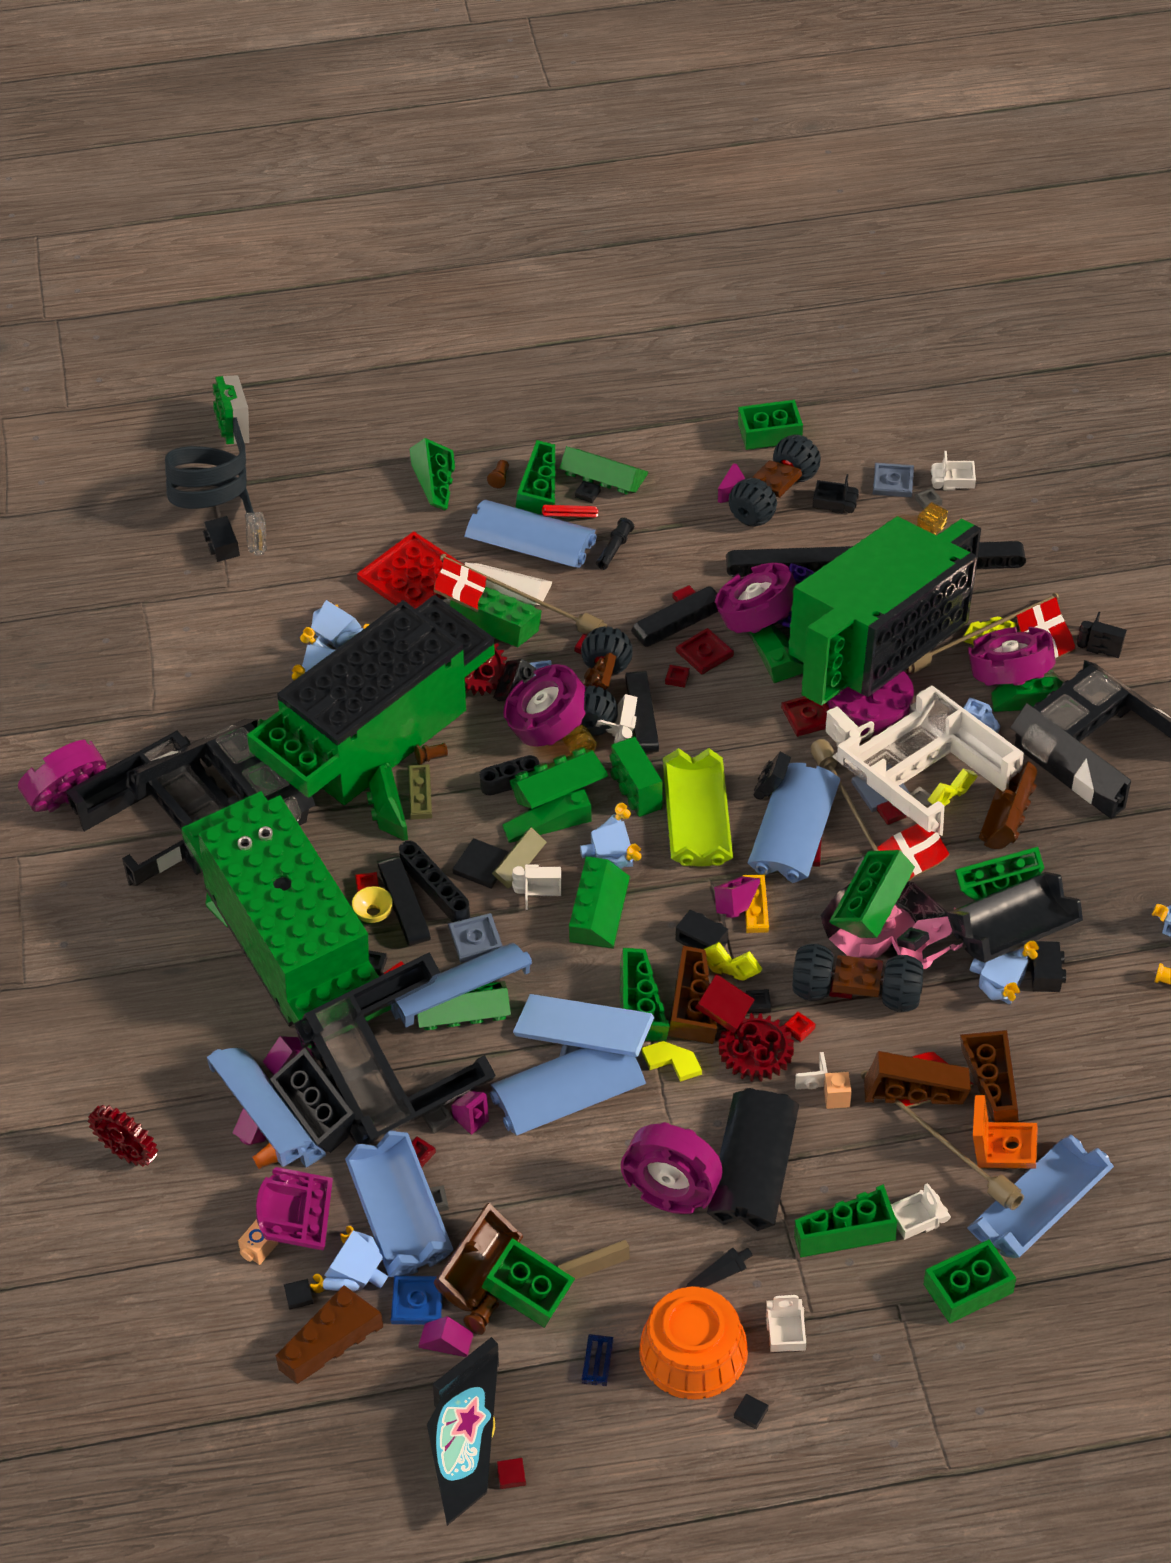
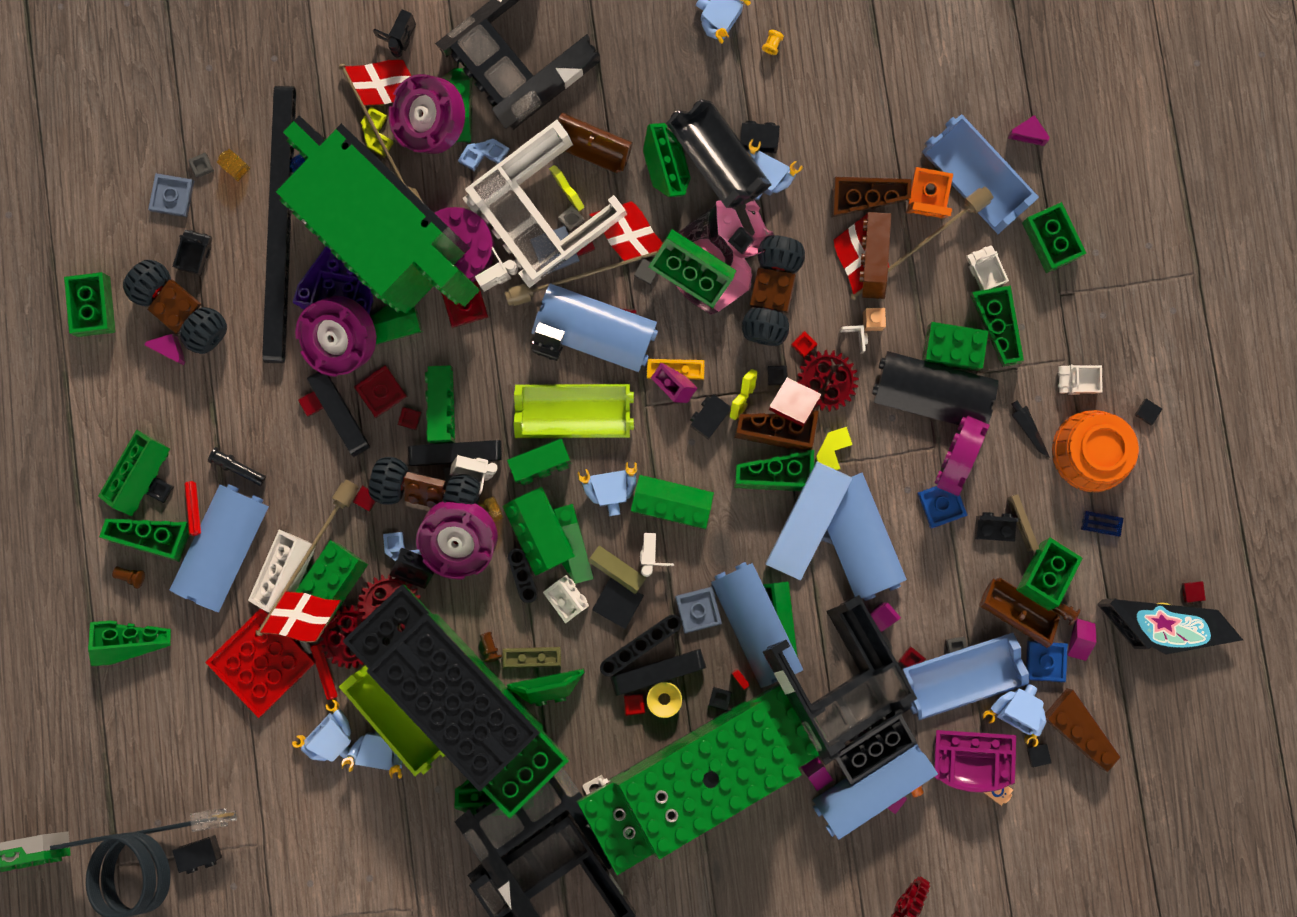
camera: 90 degrees left, 35 degrees up
(486, 815) = (566, 598): none -> white bracket
(586, 1233) = (996, 528): none -> black bracket
(607, 1180) = (941, 506): none -> blue tile
(691, 693) = (440, 405): none -> green wedge
(812, 1175) = (955, 346): none -> green brick
(953, 474) = (173, 137): white piece -> none
(1110, 1253) = (1030, 132): none -> magenta slope

